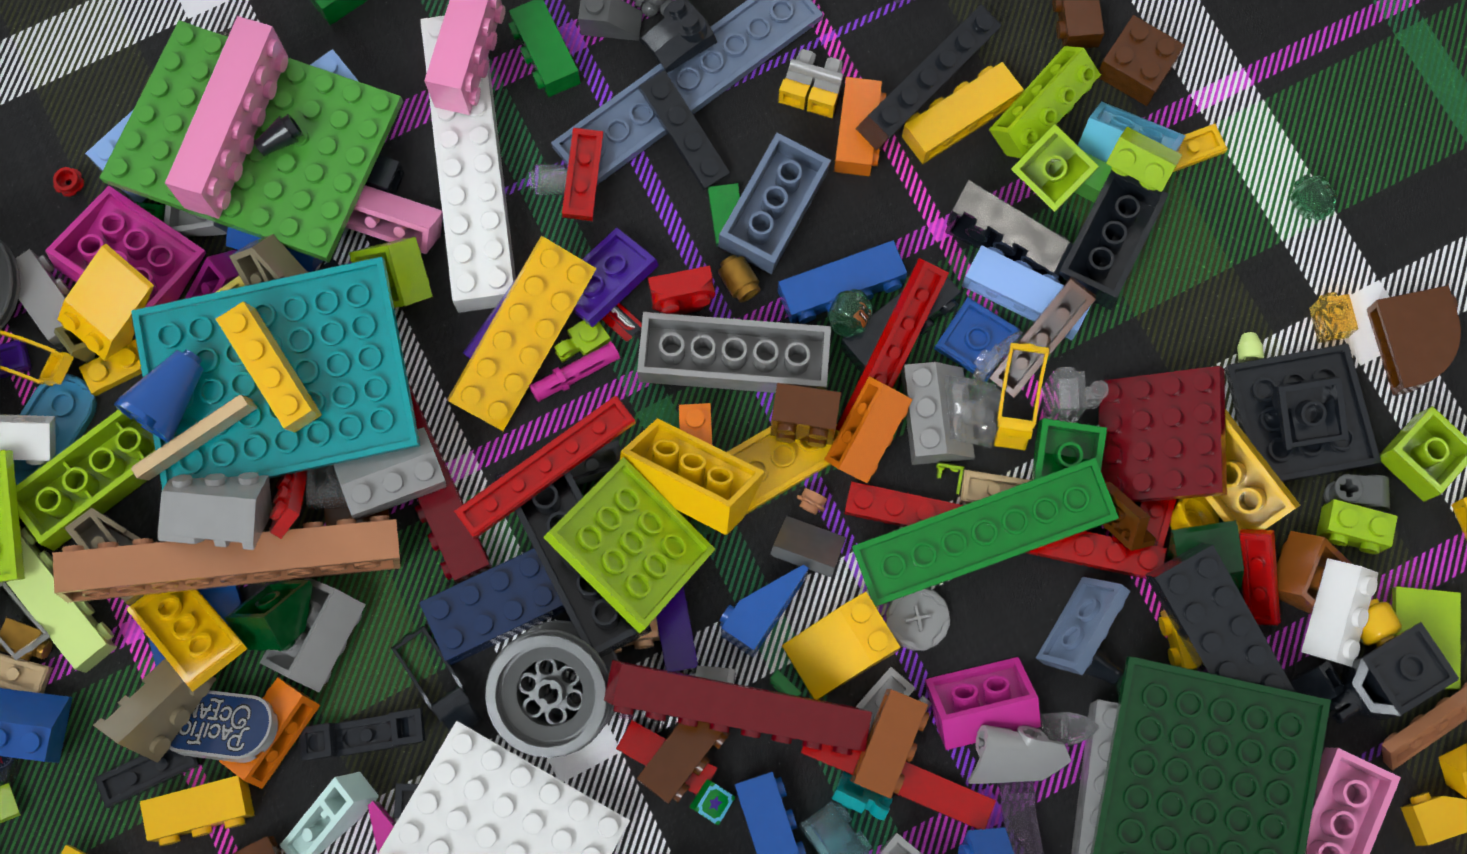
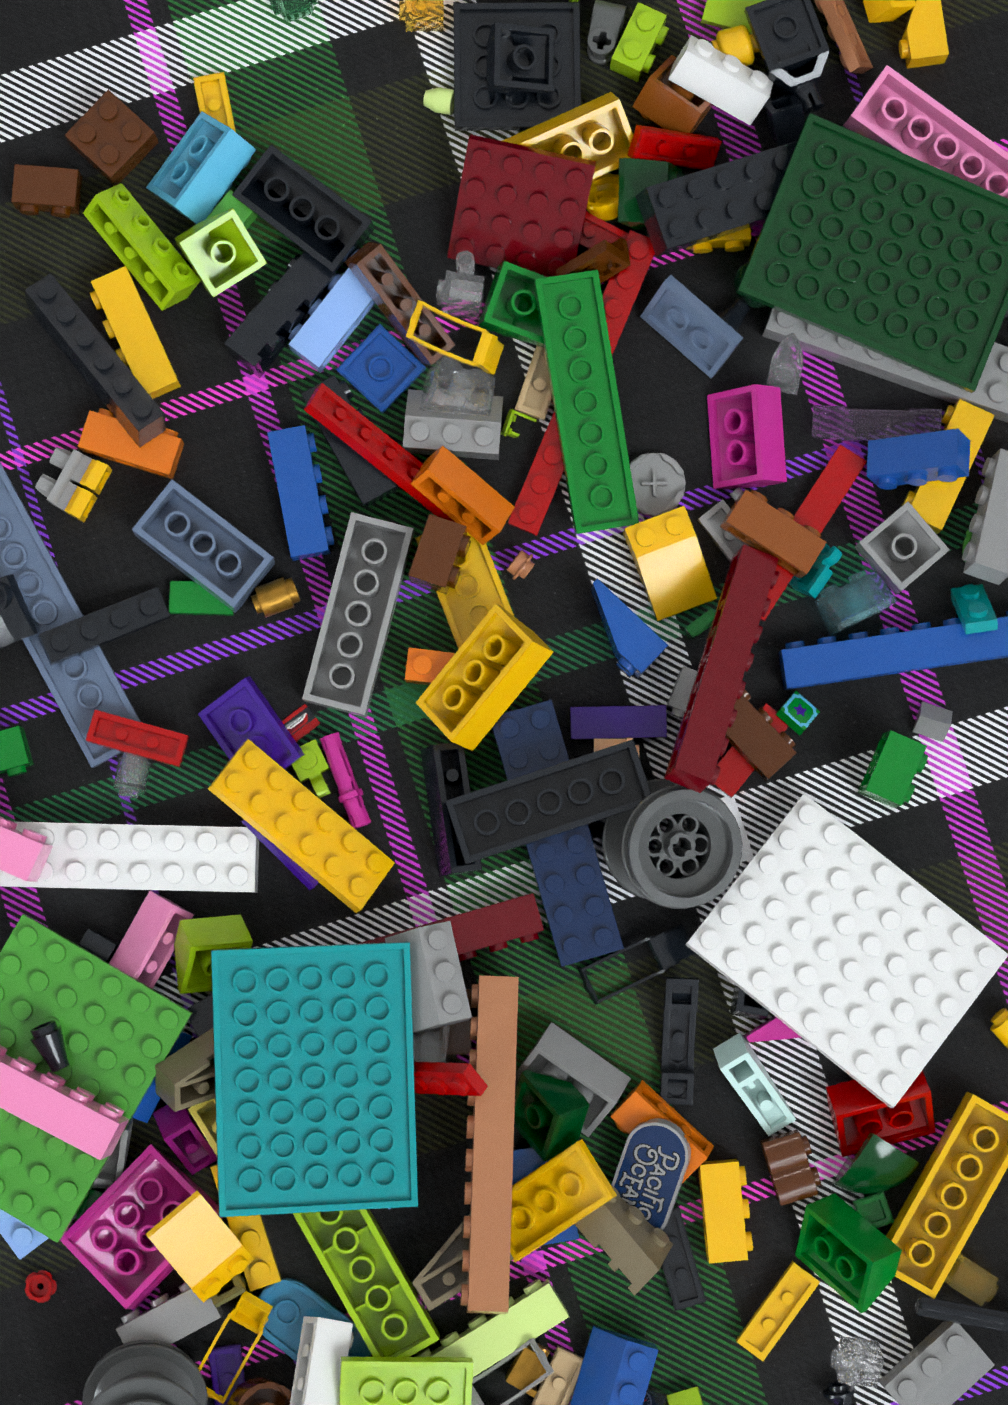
camera: 85 degrees left, 10 degrees up
(163, 394) = (318, 1188): blue cone -> none
(193, 437) = (366, 1164): tan tile -> none
(215, 509) = (445, 1150): light grey wedge -> none
(268, 367) = (309, 1078): yellow brick -> none
(545, 467) = (459, 816): red tile -> none
(630, 544) = (549, 745): lime plate -> none
(682, 291) = (286, 655): red slope -> none
(808, 546) = (568, 576): dark grey tile -> none
(850, 313) = (339, 490): clear green head -> none
(987, 361) = (410, 361): clear plate -> none
(1016, 756) = (804, 416): light grey panel -> none
(1143, 159) = (233, 161): lime brick -> none

